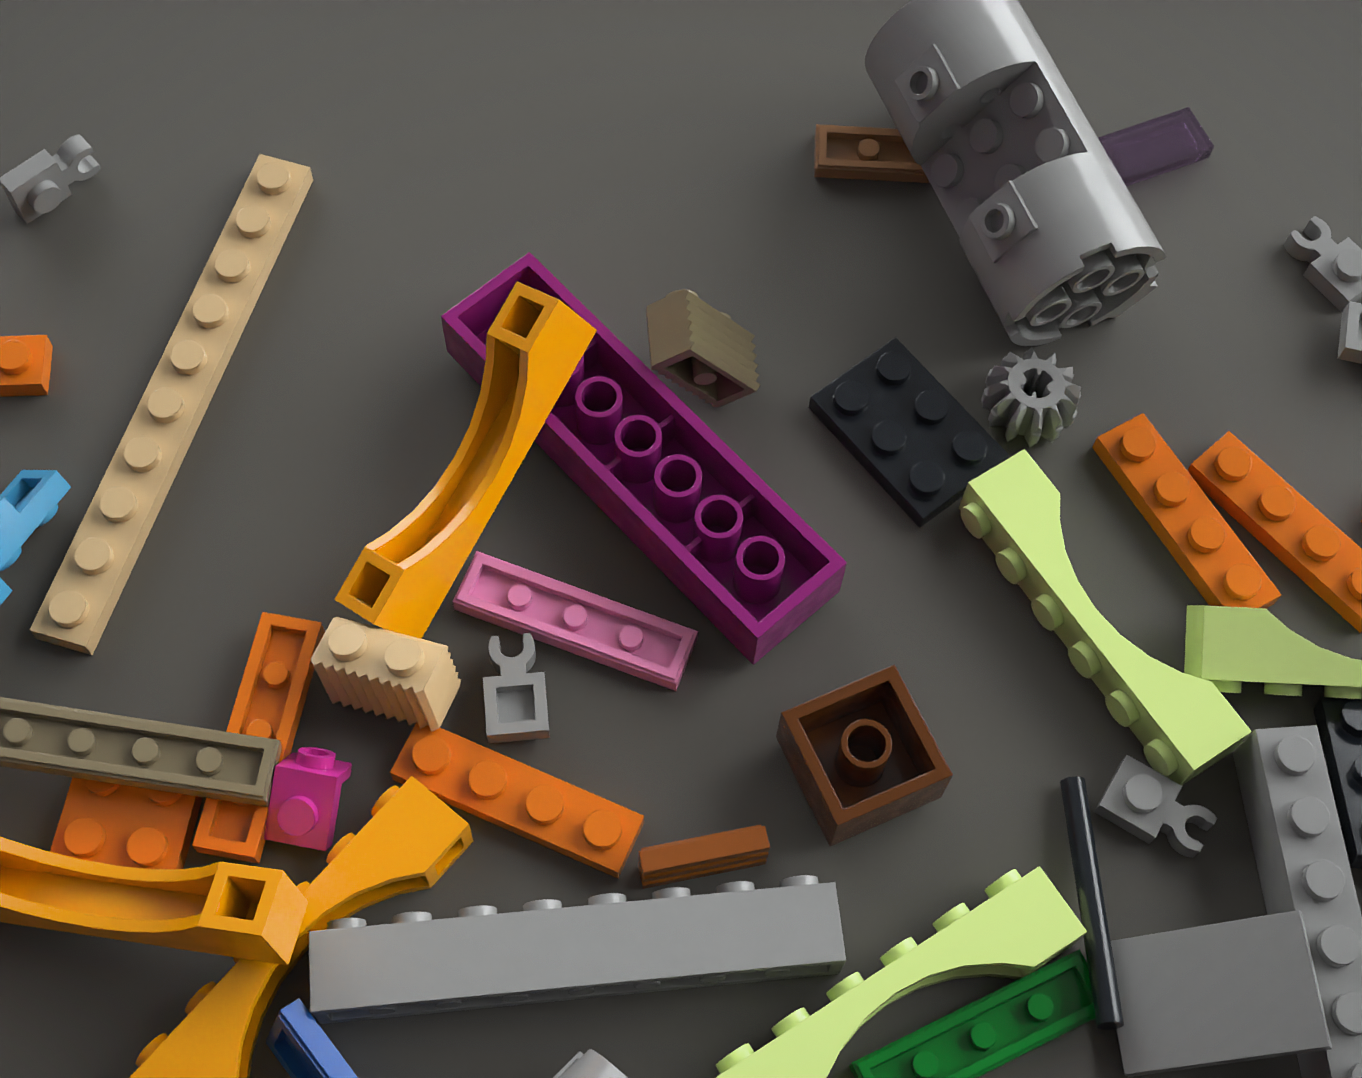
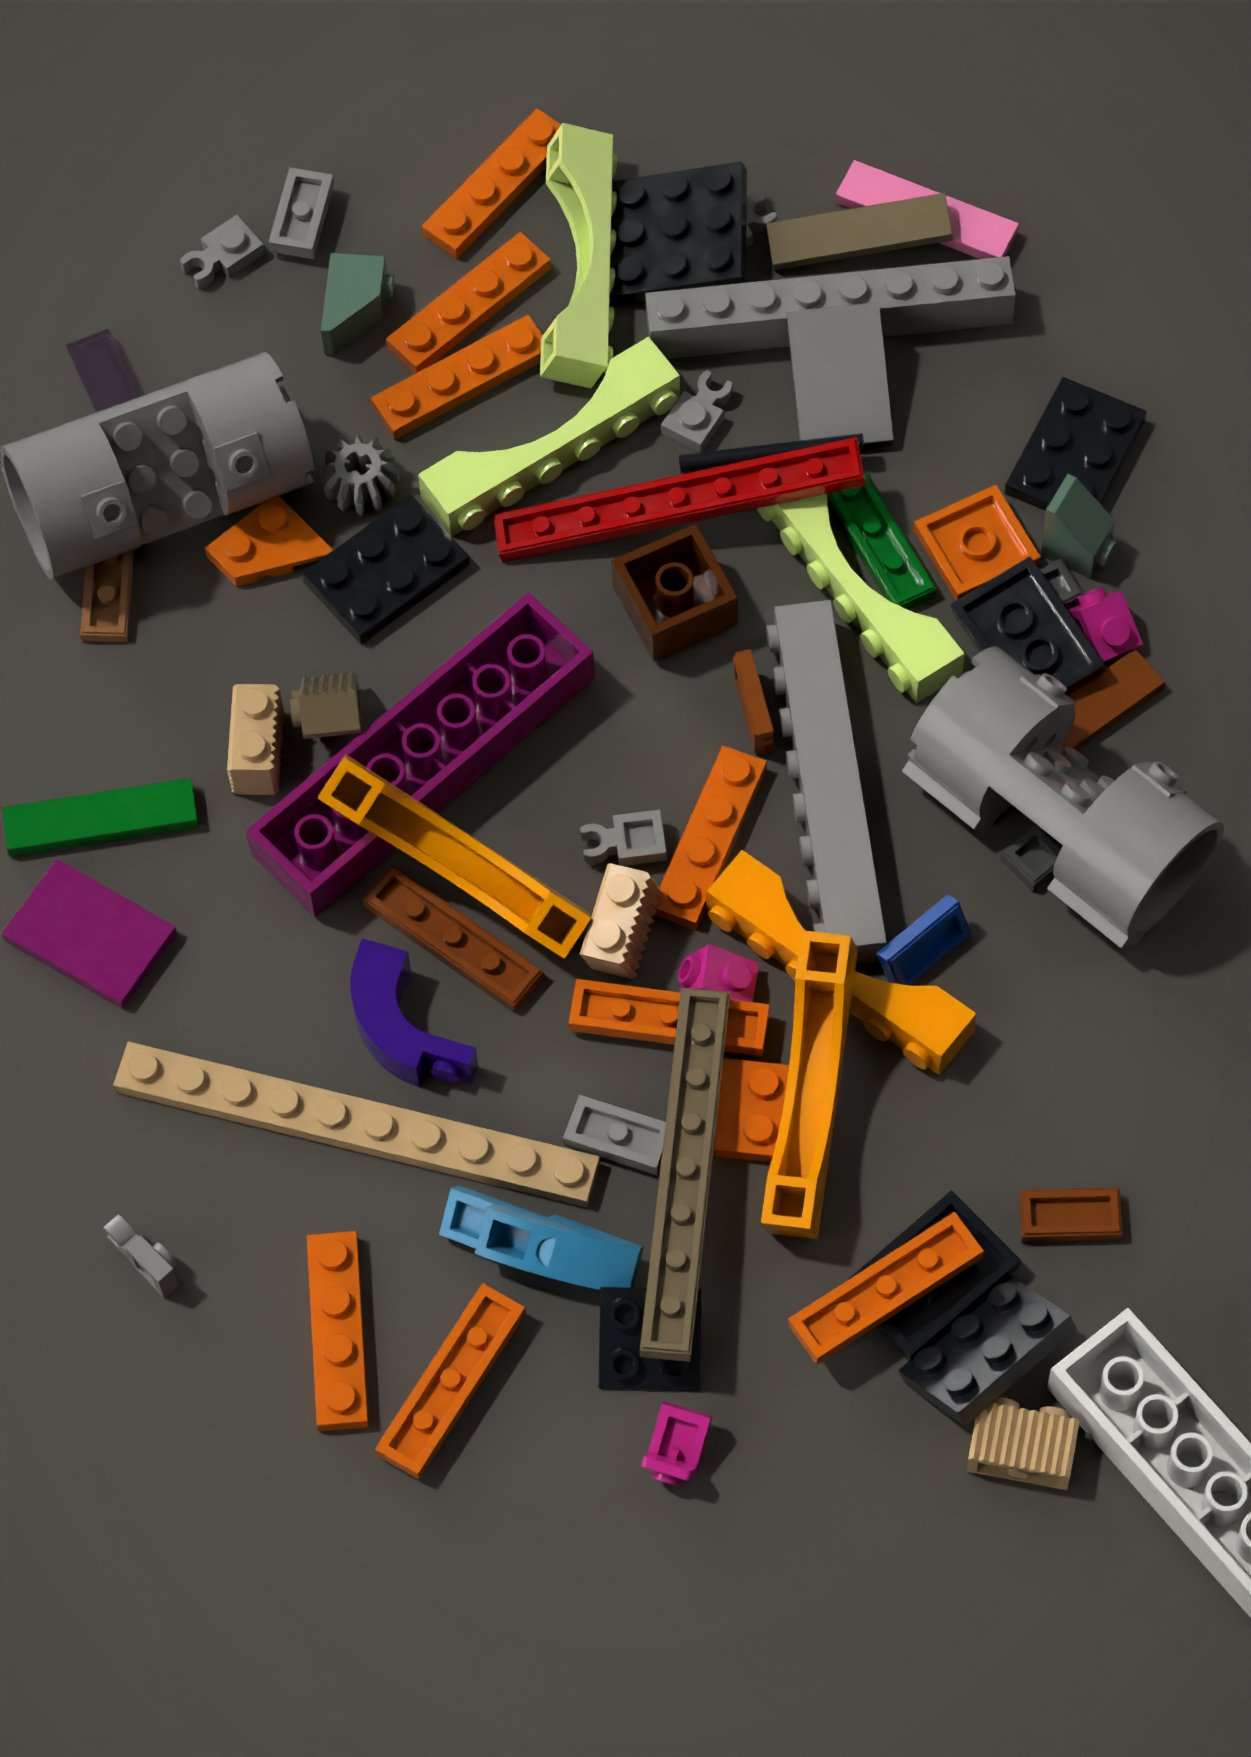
camera: 85 degrees left, 0 degrees up
(113, 661) = (616, 1134): none -> light grey plate
(289, 412) = (400, 1048): none -> dark purple arch
(390, 496) = (453, 938): none -> dark orange tile
(449, 137) = (89, 933): none -> magenta tile
(576, 620) = (564, 799): bright pink tile -> none
(590, 148) = (100, 817): none -> green tile
(653, 270) = (255, 739): none -> tan brick
(938, 306) = (266, 544): none -> orange wing
(1007, 786) = (679, 499): none -> red tile
(1279, 391) = (354, 298): none -> sand green slope

